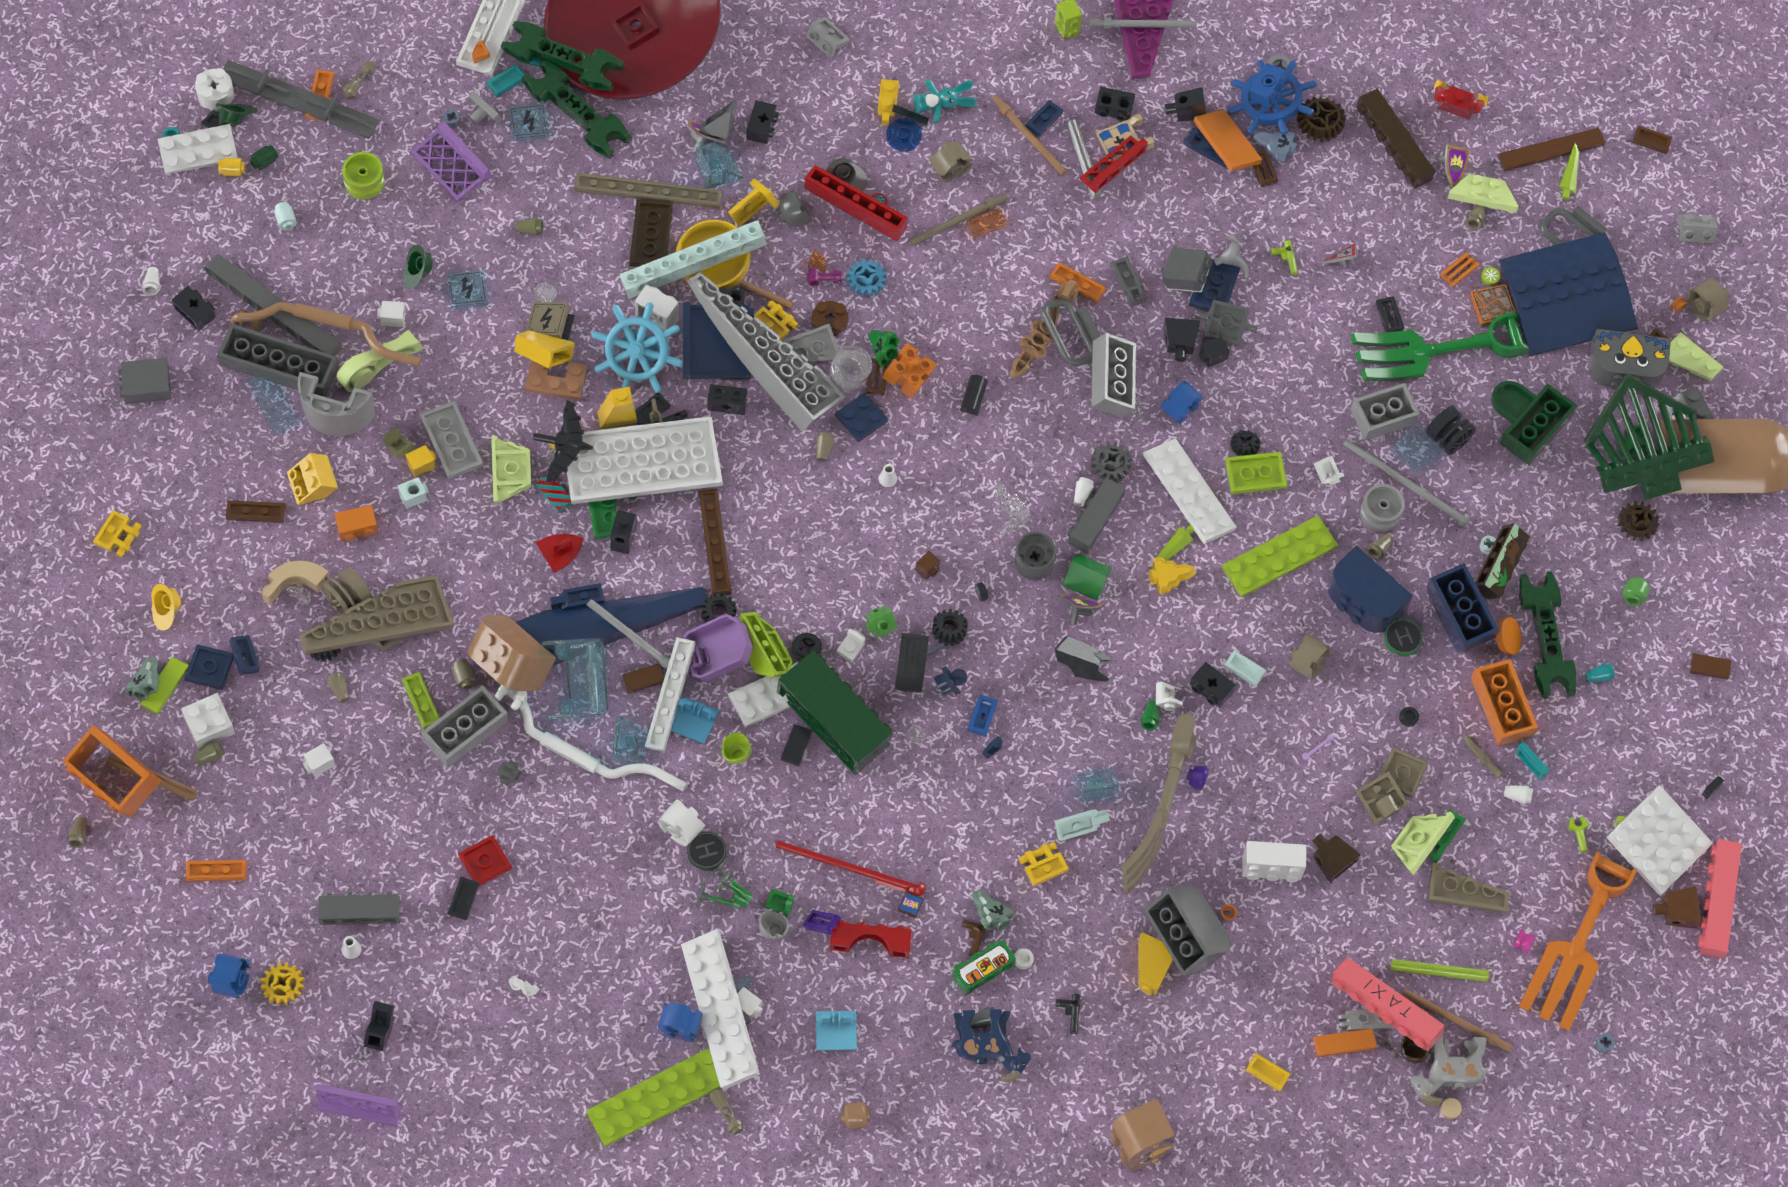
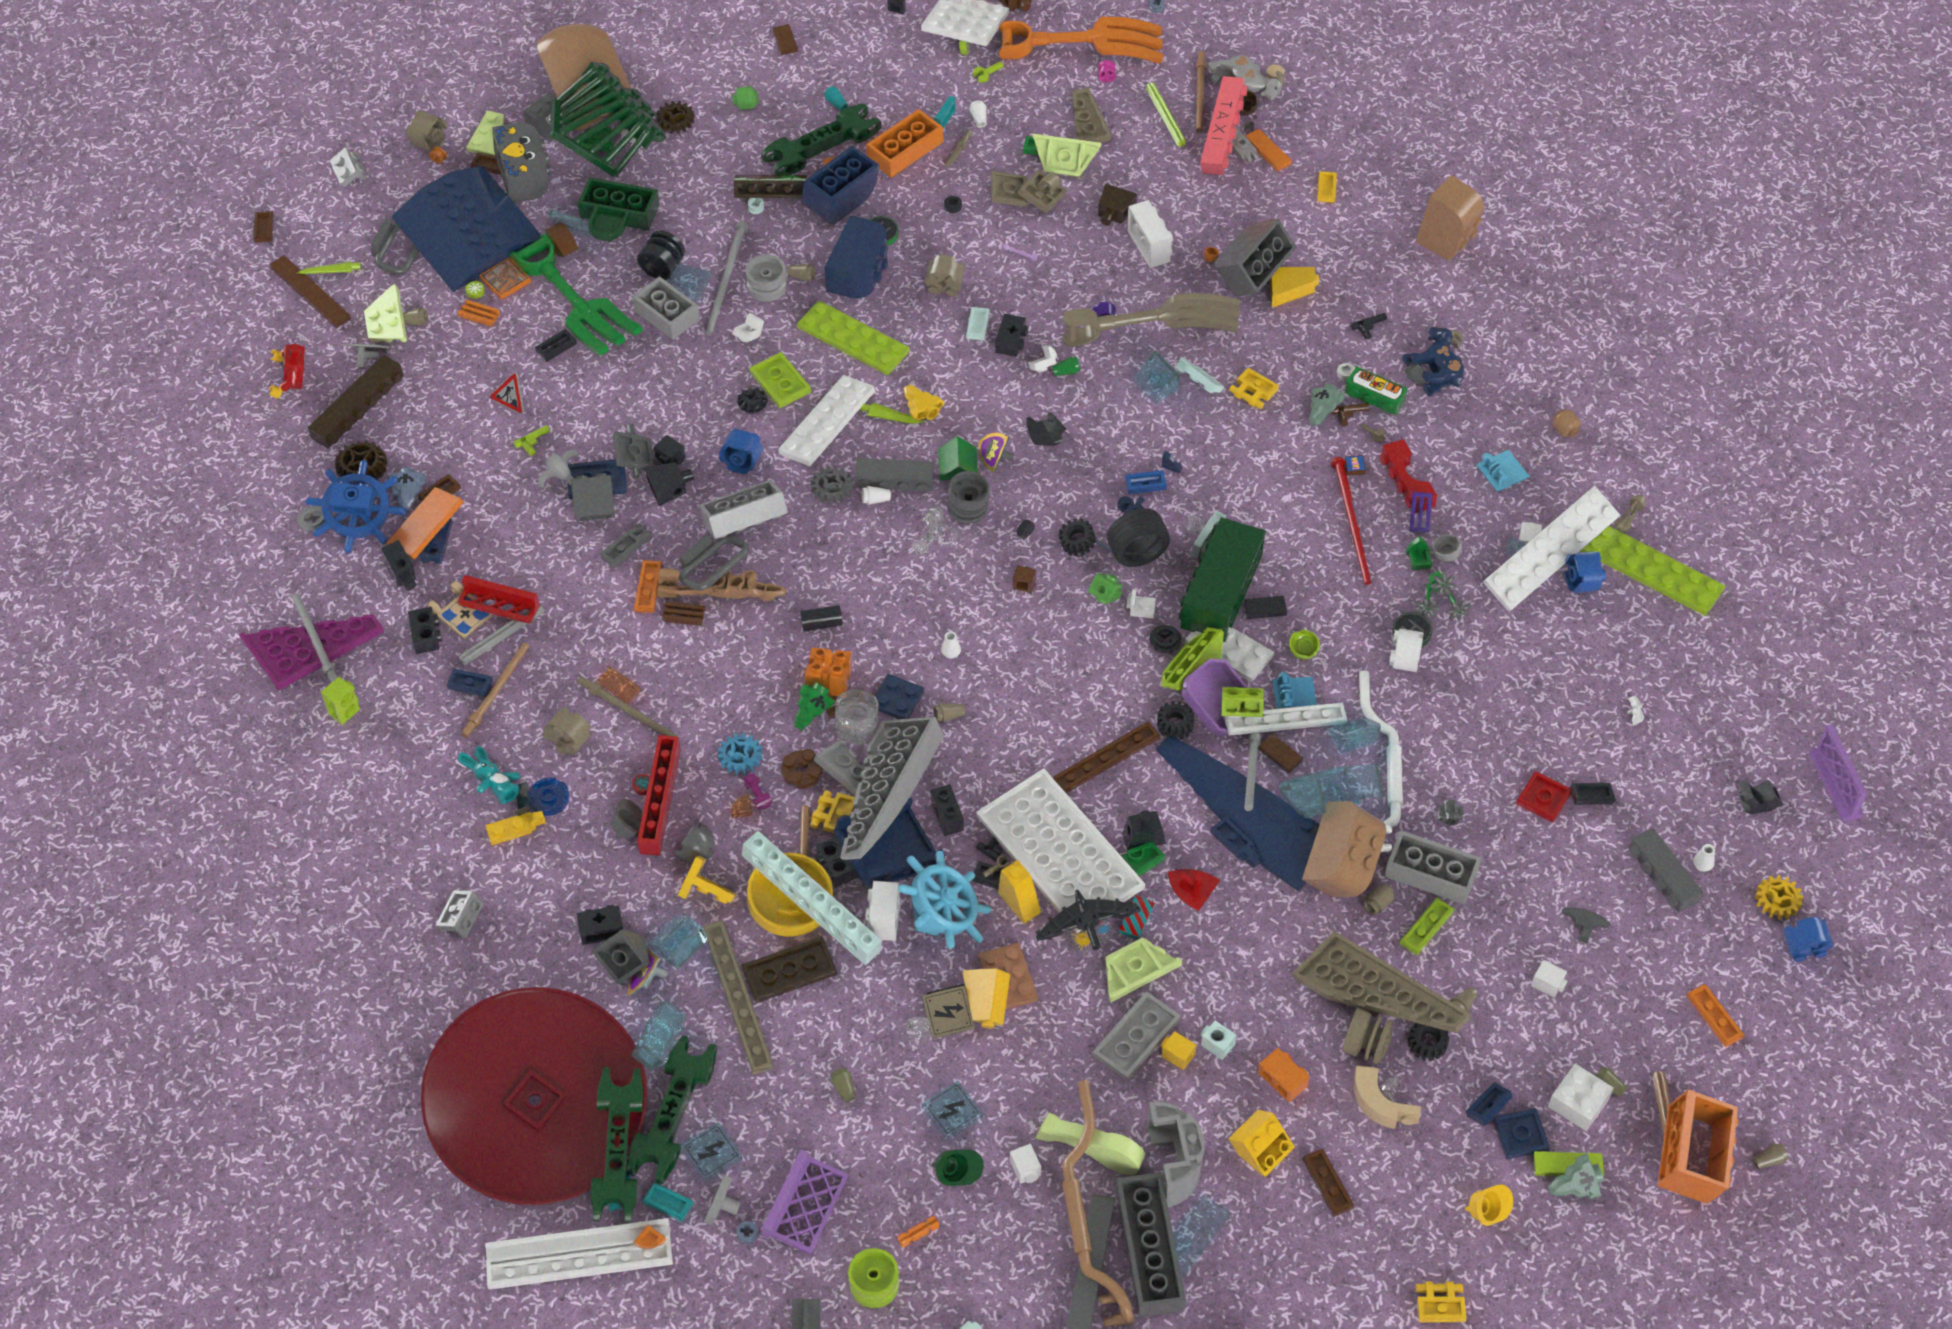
camera: 110 degrees left, 10 degrees down
(355, 824) = (1585, 921): none -> dark grey piece
(385, 224) = (918, 1231): none -> orange axle
(397, 443) = (1173, 1080): olive bracket -> none
(636, 117) = (659, 1035): none -> clear light blue brick
(693, 653) = (1242, 702): none -> lime brick
(899, 738) = (1200, 543): none -> light aqua hinge
(933, 944) = (1376, 435): none -> dark tan hand
(1041, 286) = (684, 610): none -> reddish brown tile
(1515, 358) = (561, 239): none -> reddish brown brick
(1530, 370) = (572, 223): none -> clear light blue tile

